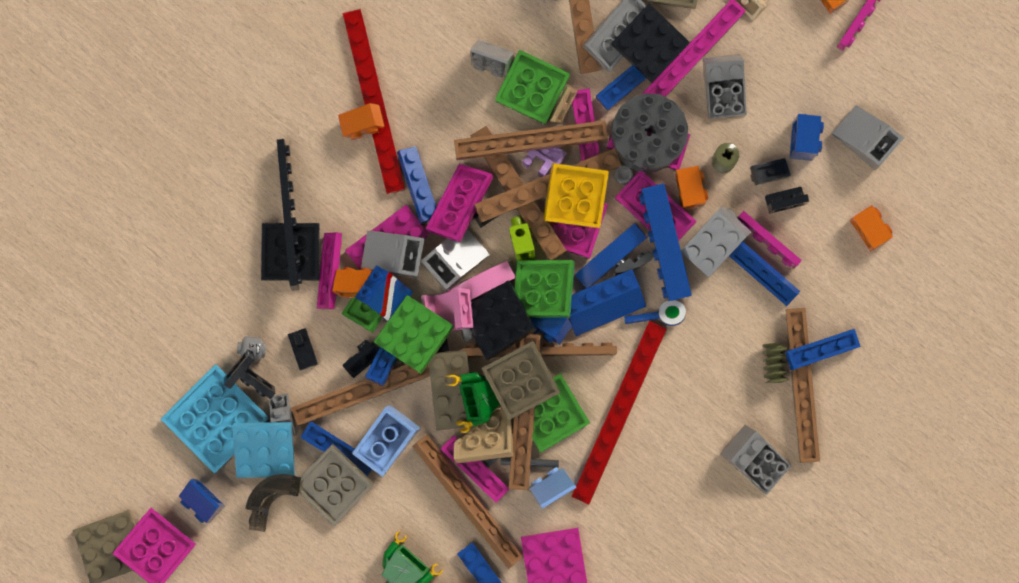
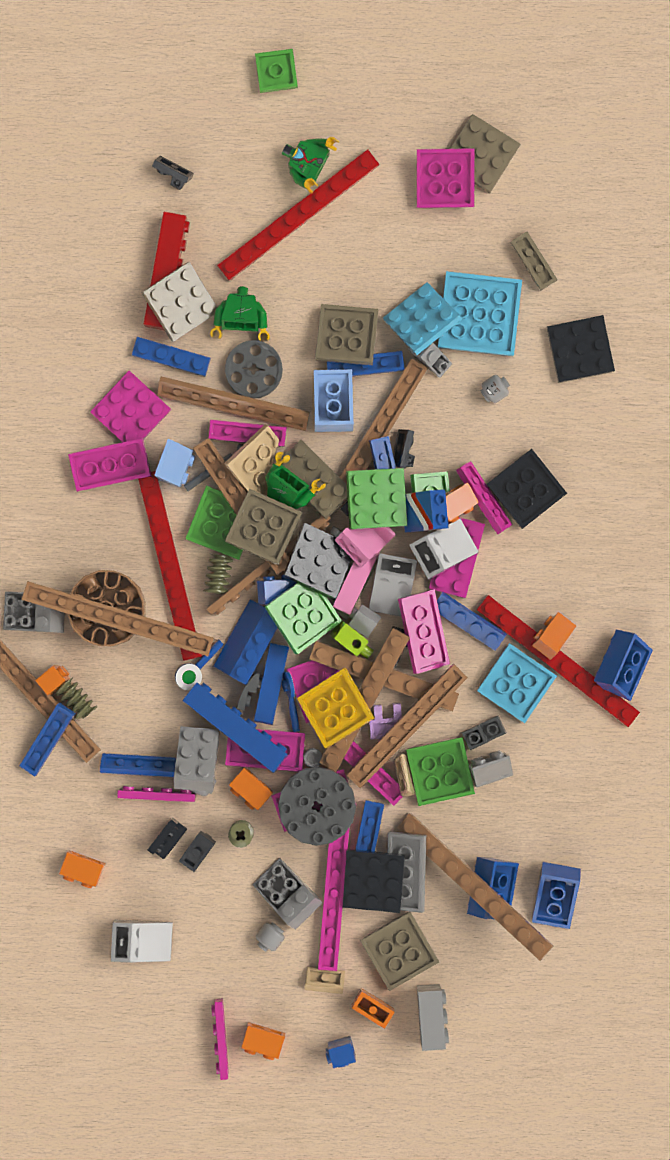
camera: 140 degrees right, 5 degrees up
(139, 427) = (534, 261): none -> dark tan plate
(159, 328) = (580, 349): none -> black plate
(201, 501) = (439, 242): blue slope -> none
(248, 377) = (479, 364): black bracket -> none
(265, 494) = (394, 285): clear smoke arch -> none
(290, 222) = (544, 509): black plate -> none
(302, 349) = (455, 421): black hinge -> none
(325, 58) = (623, 664): none -> blue slope
(419, 108) = (516, 683): none -> medium azure plate
(439, 514) = (260, 362): none -> dark grey wedge
(474, 91) = (484, 732): none -> dark grey slope
(499, 248) = (364, 620): none -> light grey brick
(585, 373) = (218, 574): none -> olive piece
(599, 241) = (288, 687): none -> blue piece
(604, 529) = (109, 464): none -> dark pink plate
(694, 399) = (117, 618): none -> medium nougat plate
(709, 402) = (110, 589): none -> medium nougat brick
(764, 63) = (270, 937): none -> light grey head
(781, 392) = (53, 679): none -> orange brick
(805, 137) = (189, 901): blue brick -> none

